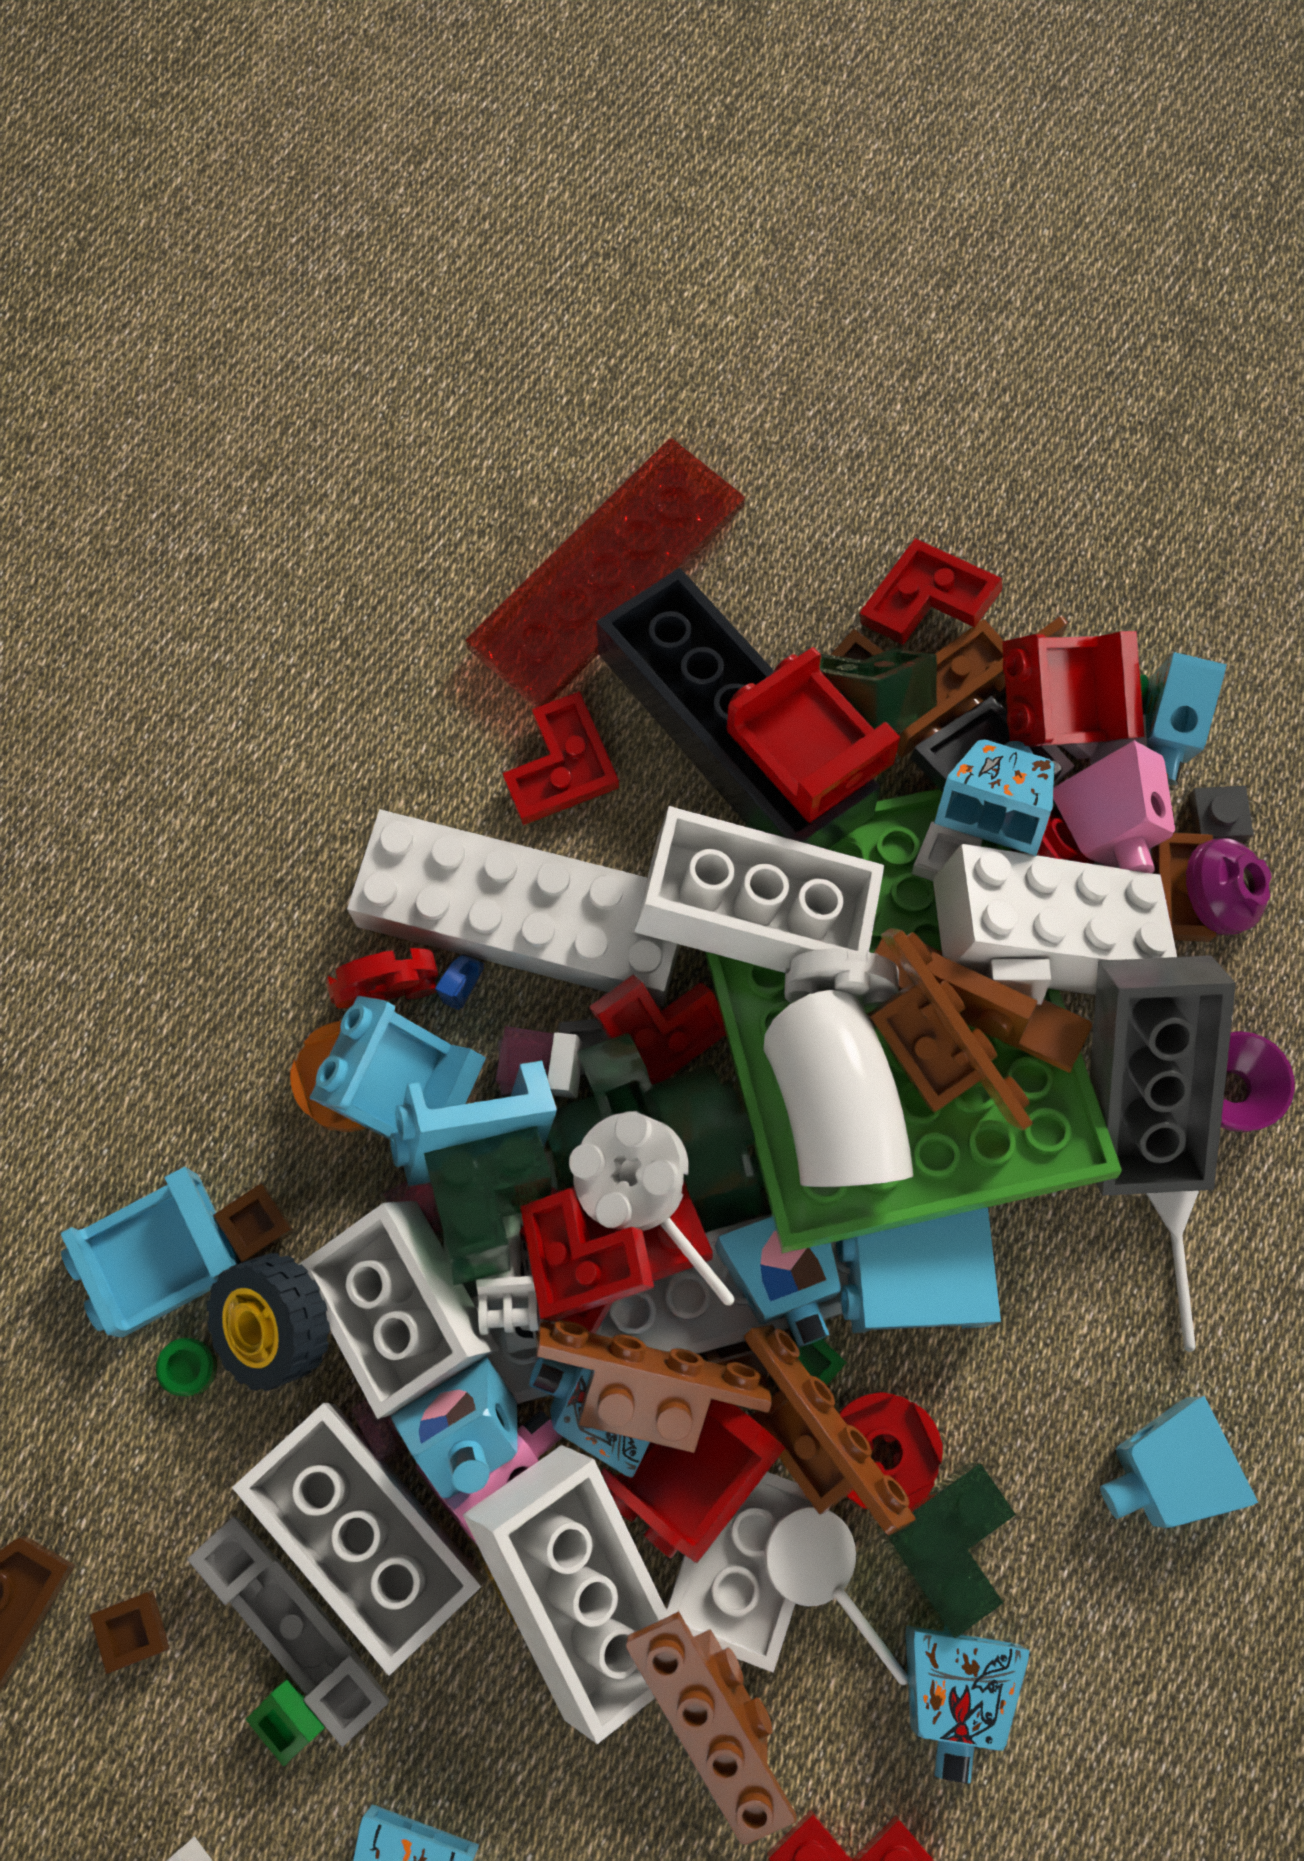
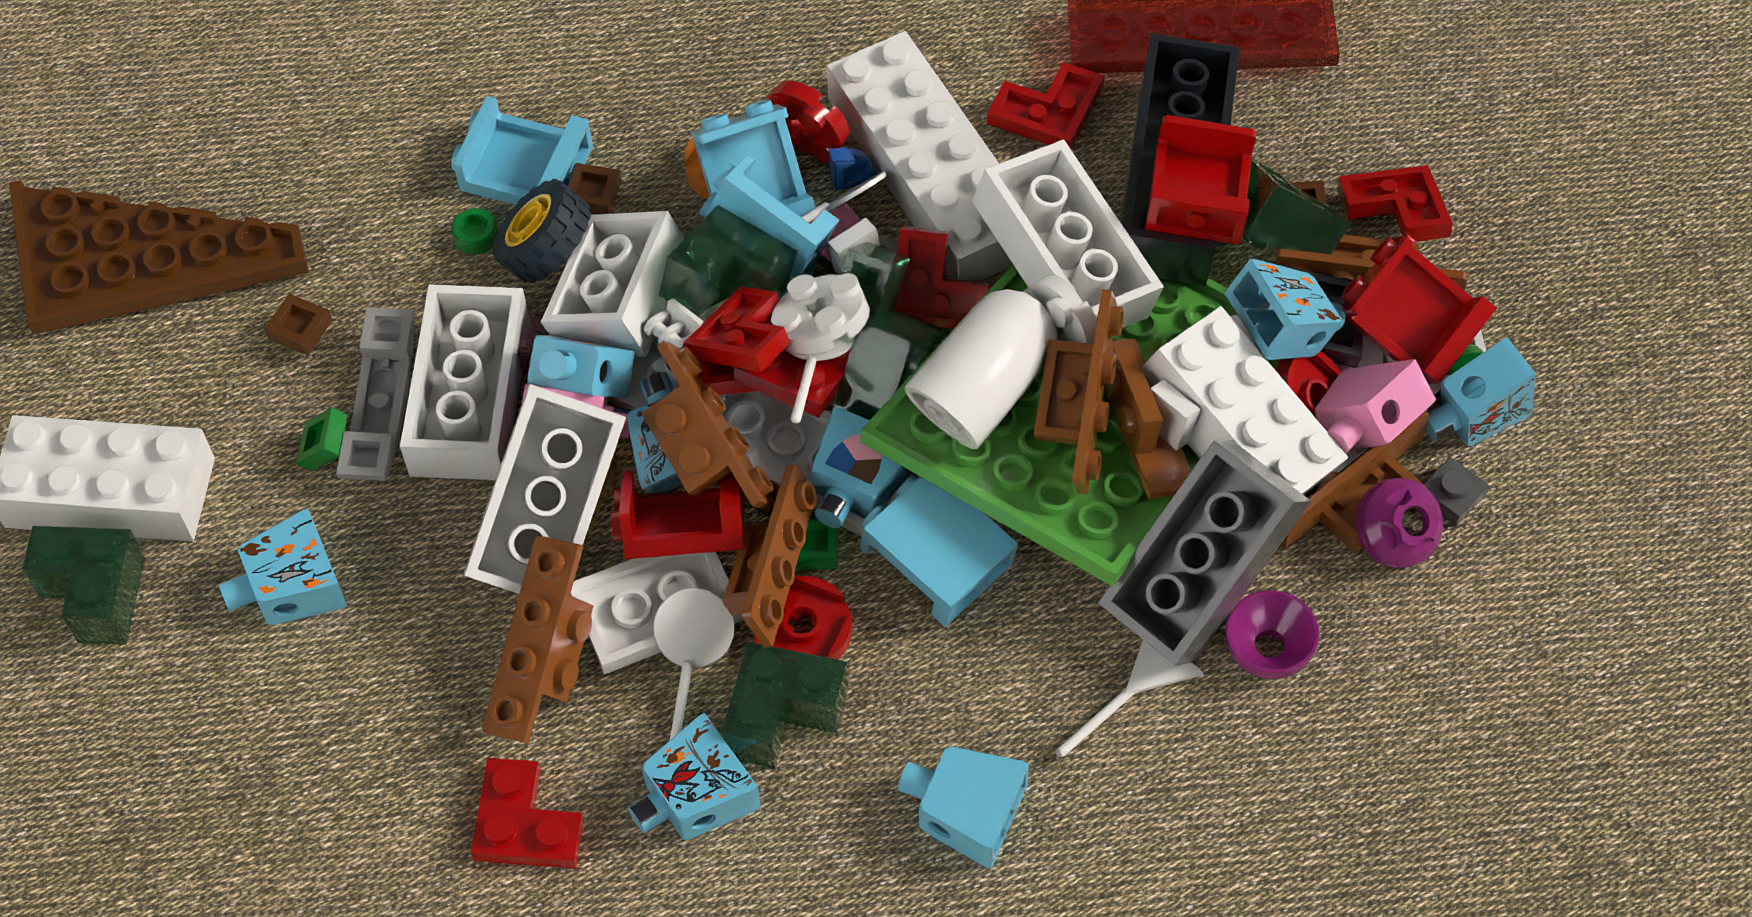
camera: 50 degrees right, 15 degrees down
(492, 1015) = (812, 215): none -> white piece

